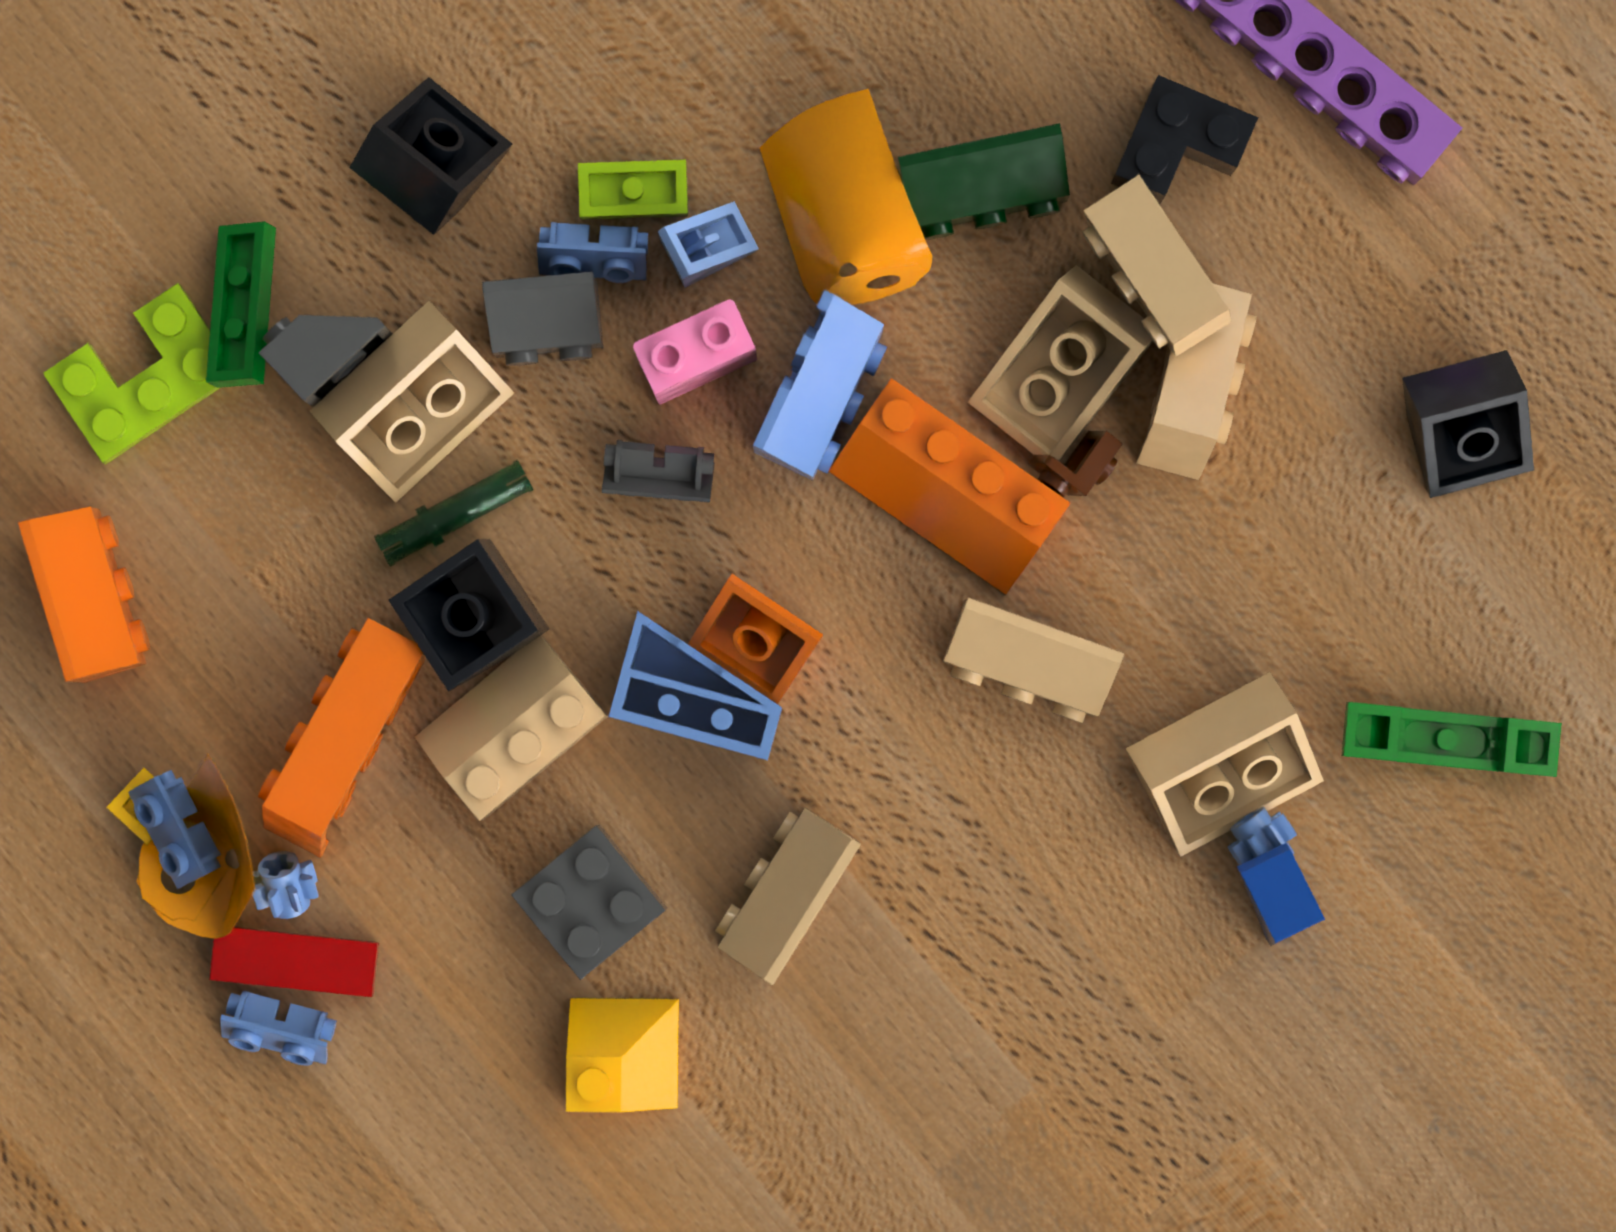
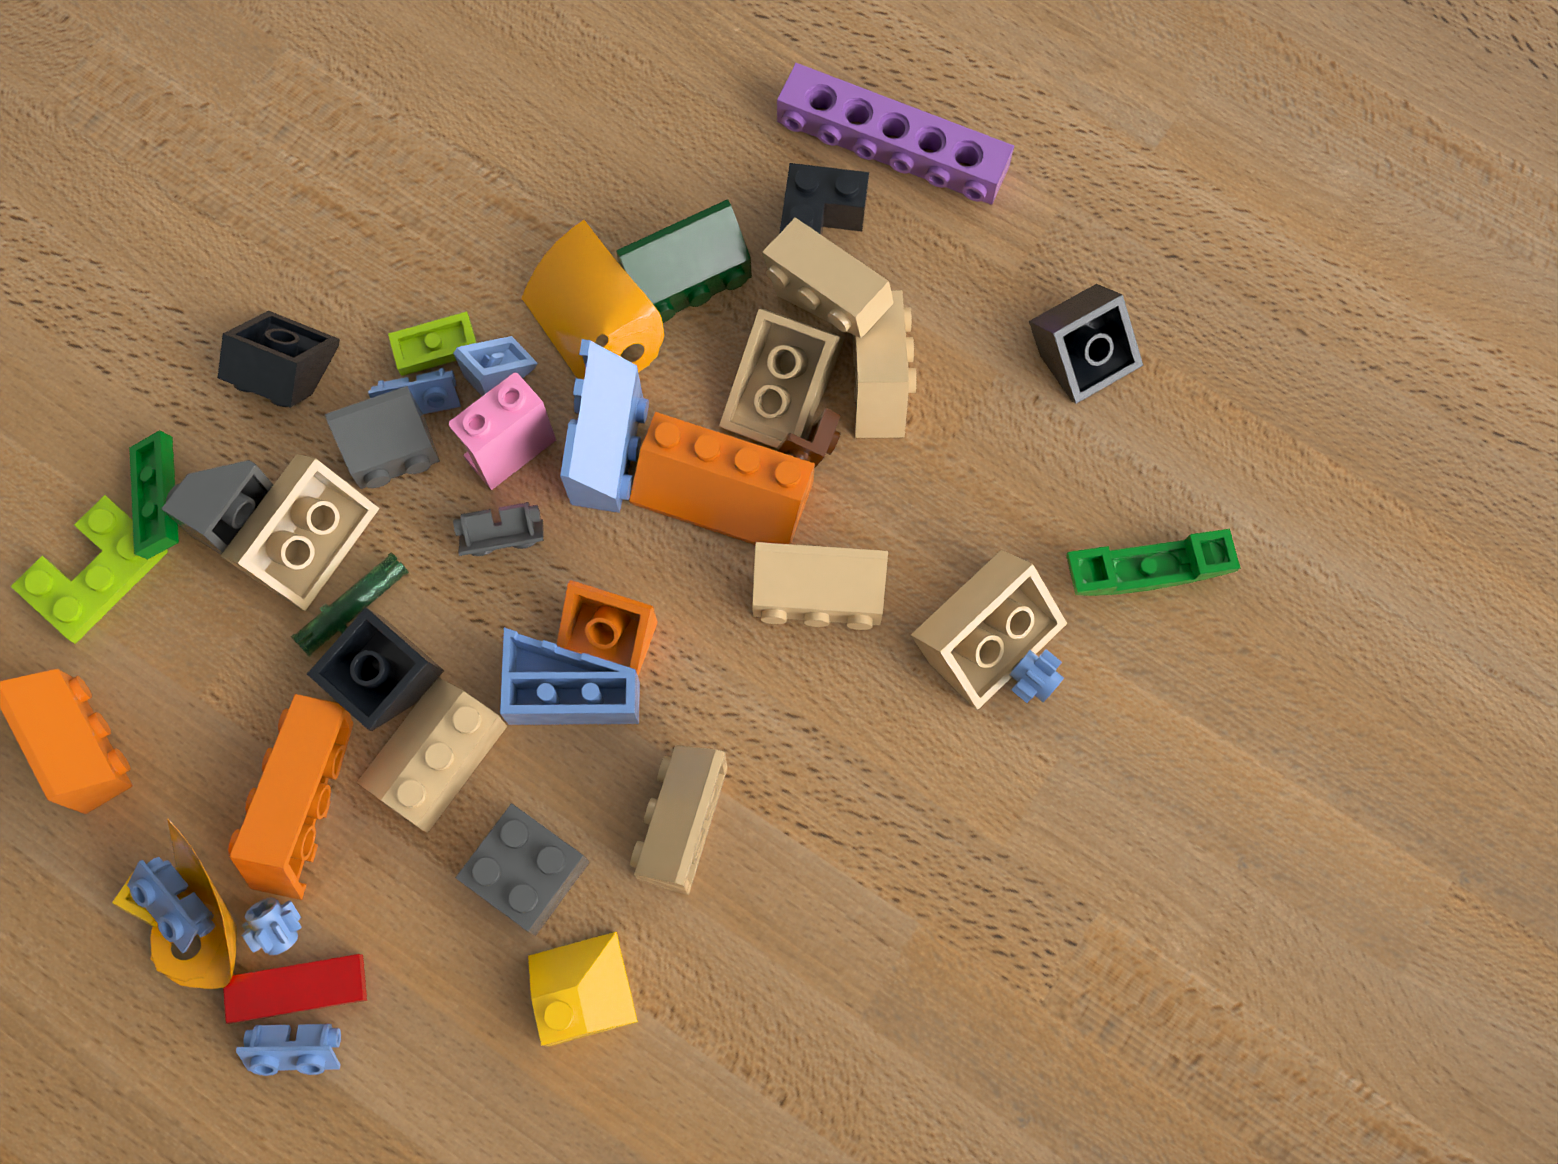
camera: 15 degrees left, 15 degrees down
(1279, 894) = (1066, 710): blue slope -> none

